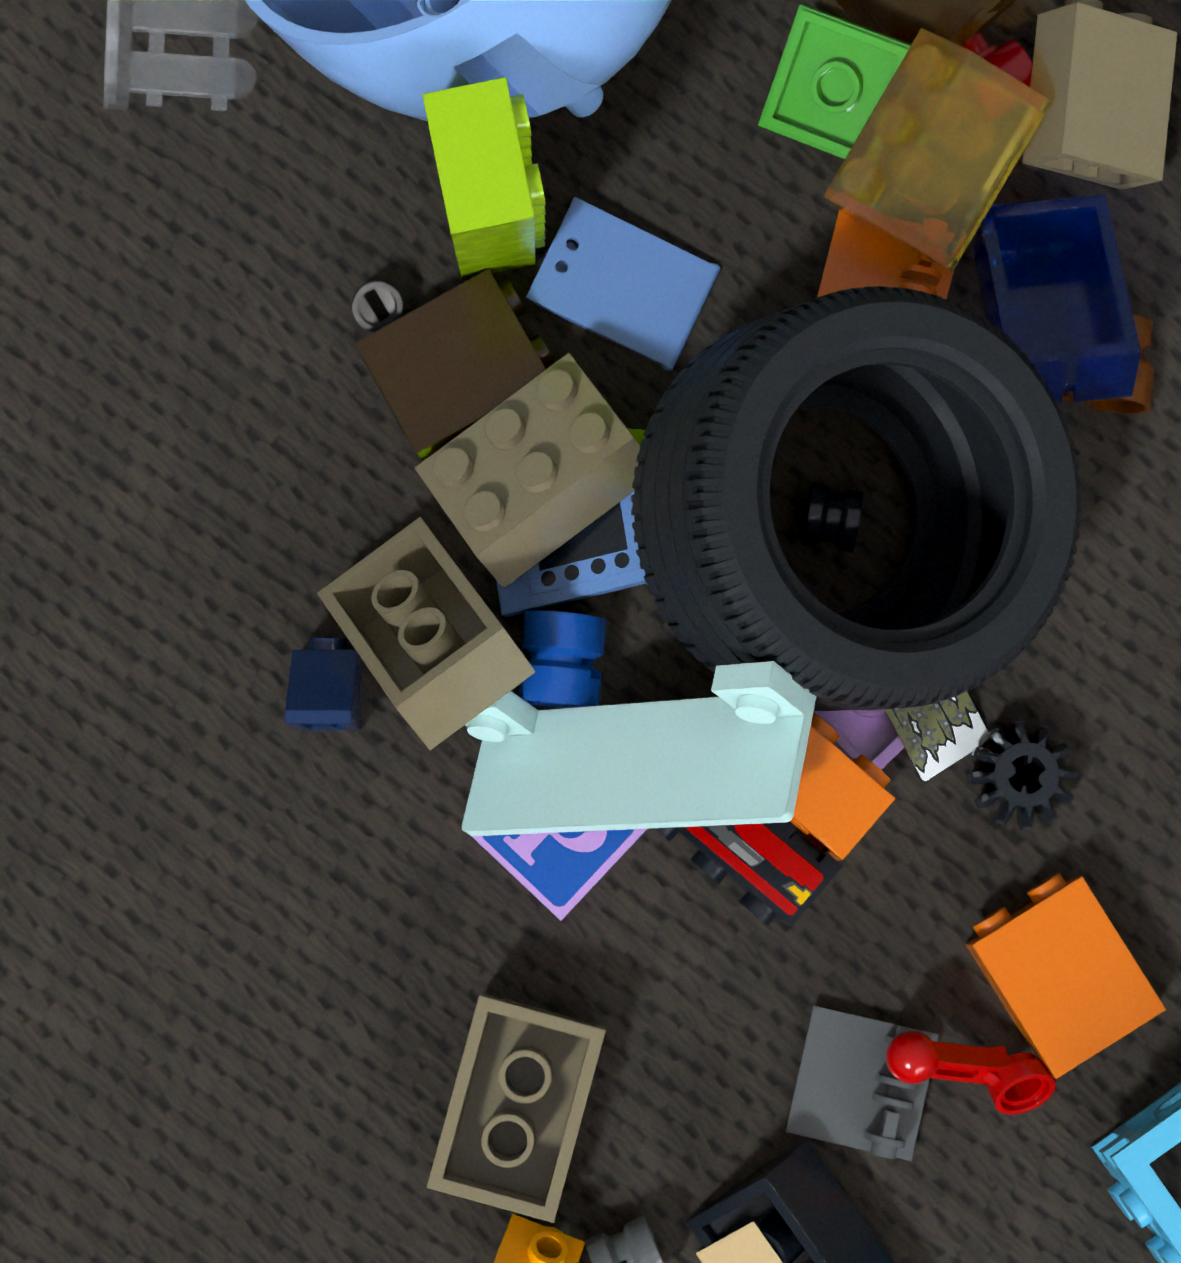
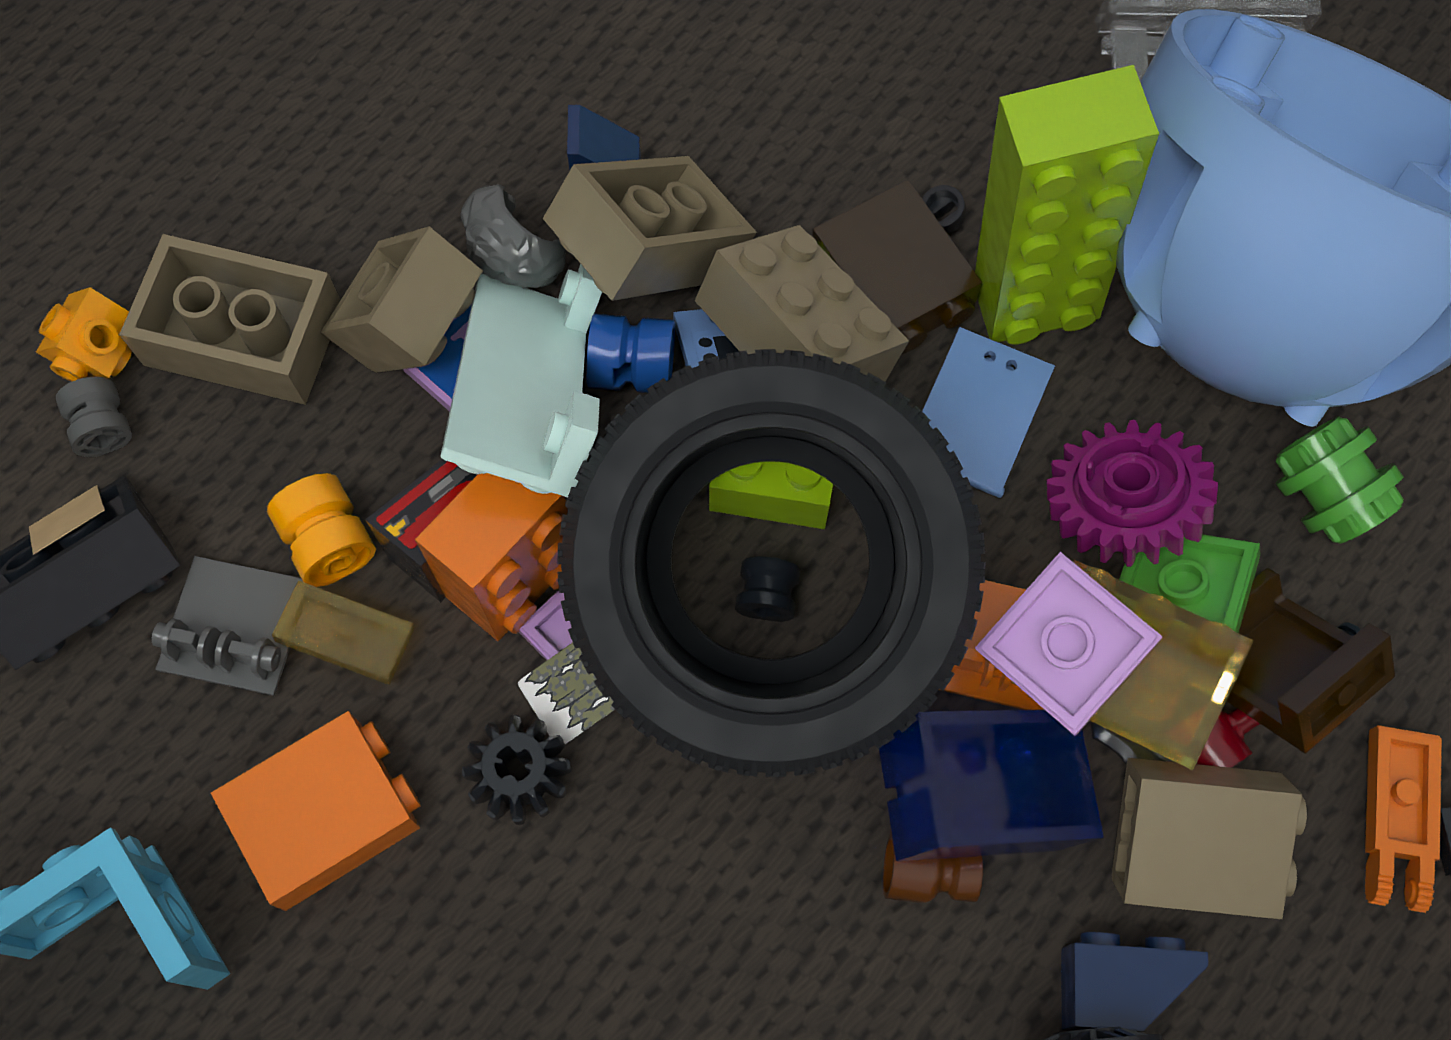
camera: 85 degrees right, 15 degrees down
(432, 803) = (504, 246): none -> dark grey hair
(508, 913) = (403, 302): none -> dark tan brick
(766, 991) = (320, 527): none -> light orange wheel
(770, 137) = (1132, 492): none -> magenta gear
(876, 962) = (343, 632): none -> clear yellow plate
(927, 211) = (1068, 643): none -> lavender tile
(1013, 1081) = (220, 758): red piece -> none

